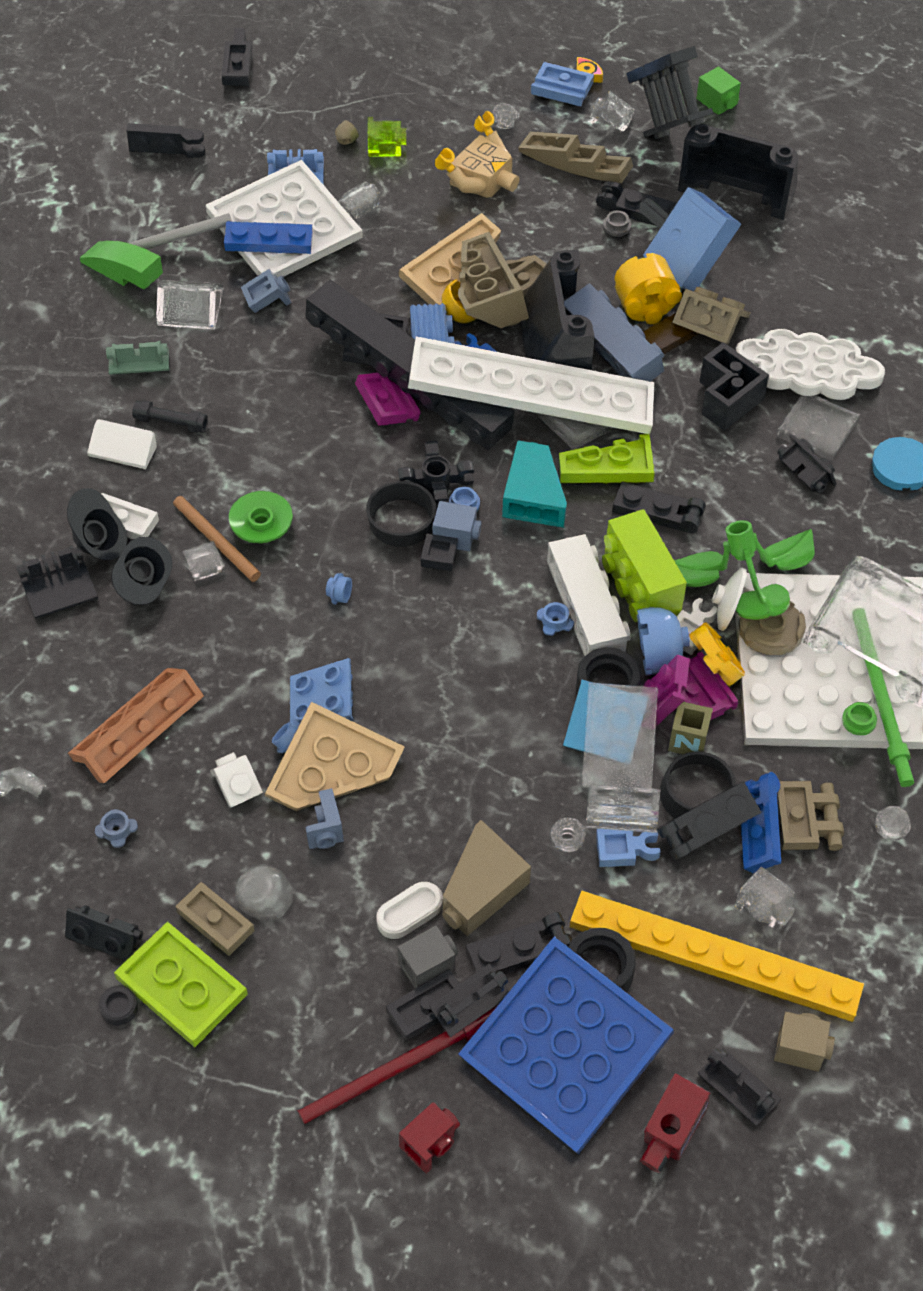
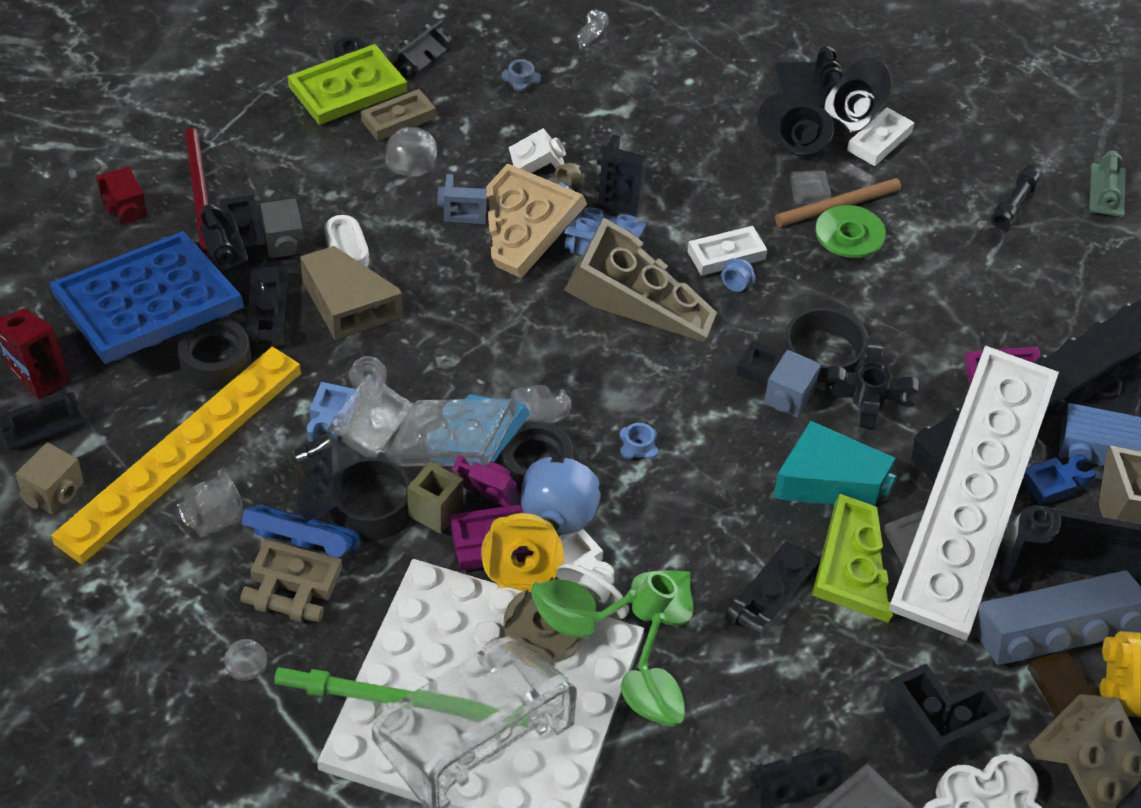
camera: 105 degrees right, 5 degrees down
(122, 444) = (982, 155): white slope -> none
(137, 723) = (625, 105): nougat fence -> none
(256, 745) = (570, 175): none -> dark tan hinge
(263, 692) = (620, 178): none -> black bracket
(313, 602) = (714, 251): none -> white plate
(385, 656) = (628, 282): none -> dark tan wedge
(465, 496) = (830, 406): medium blue plate -> none
(557, 685) = (541, 403): none -> clear hair
(587, 594) = (659, 469): white brick -> none
(642, 565) = (662, 517): lime brick -> none
(859, 718) = (378, 658): bright green plate -> none

